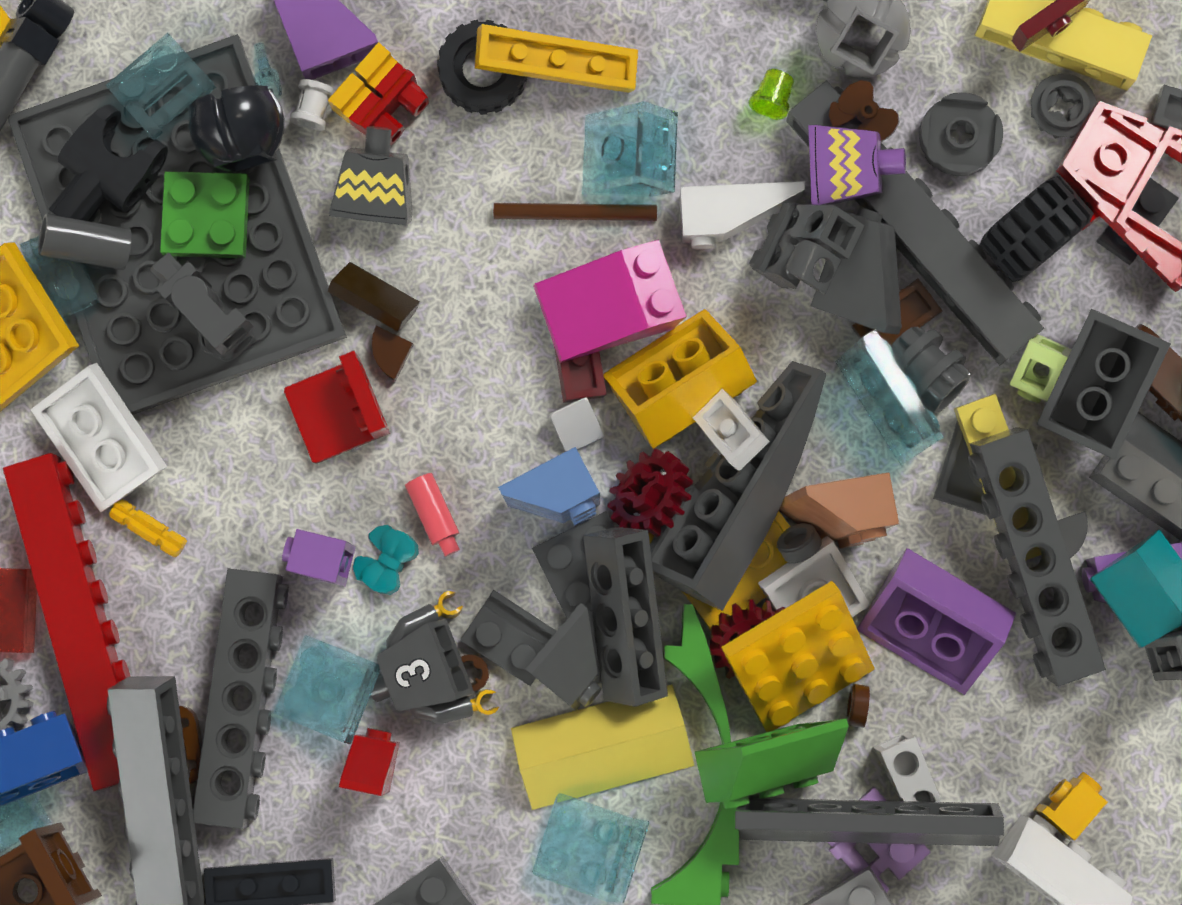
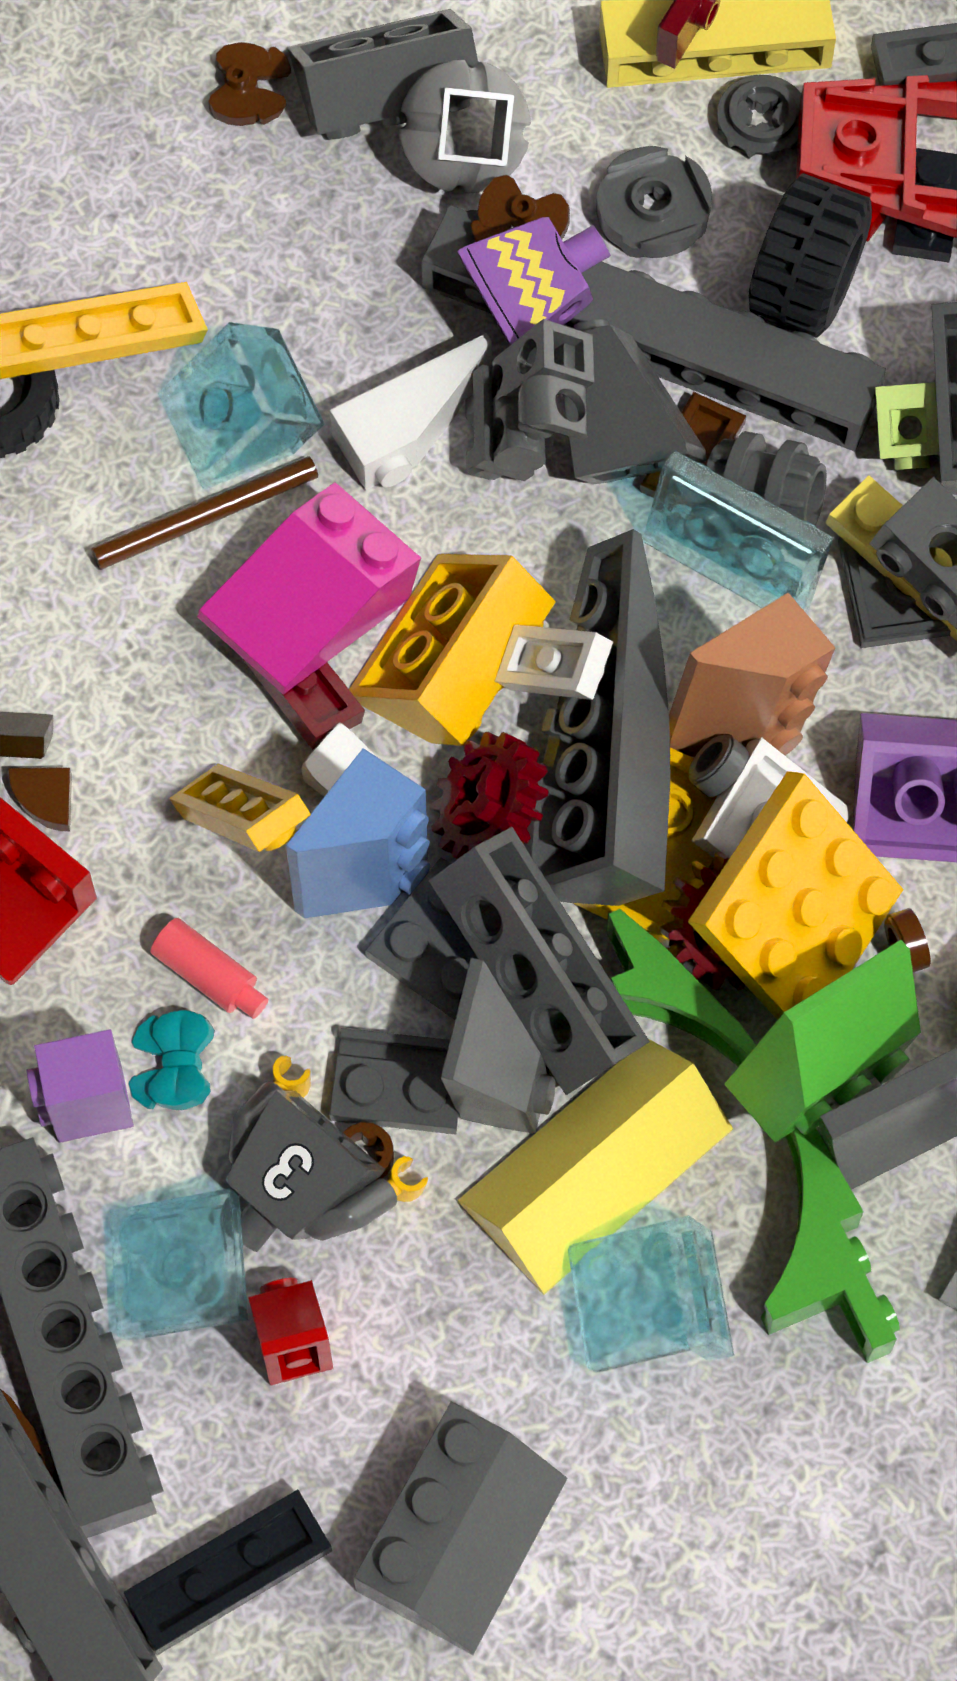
camera: 30 degrees left, 15 degrees down
(491, 435) = (241, 808): none -> yellow plate
(773, 94) = (389, 260): clear neon green piece -> none

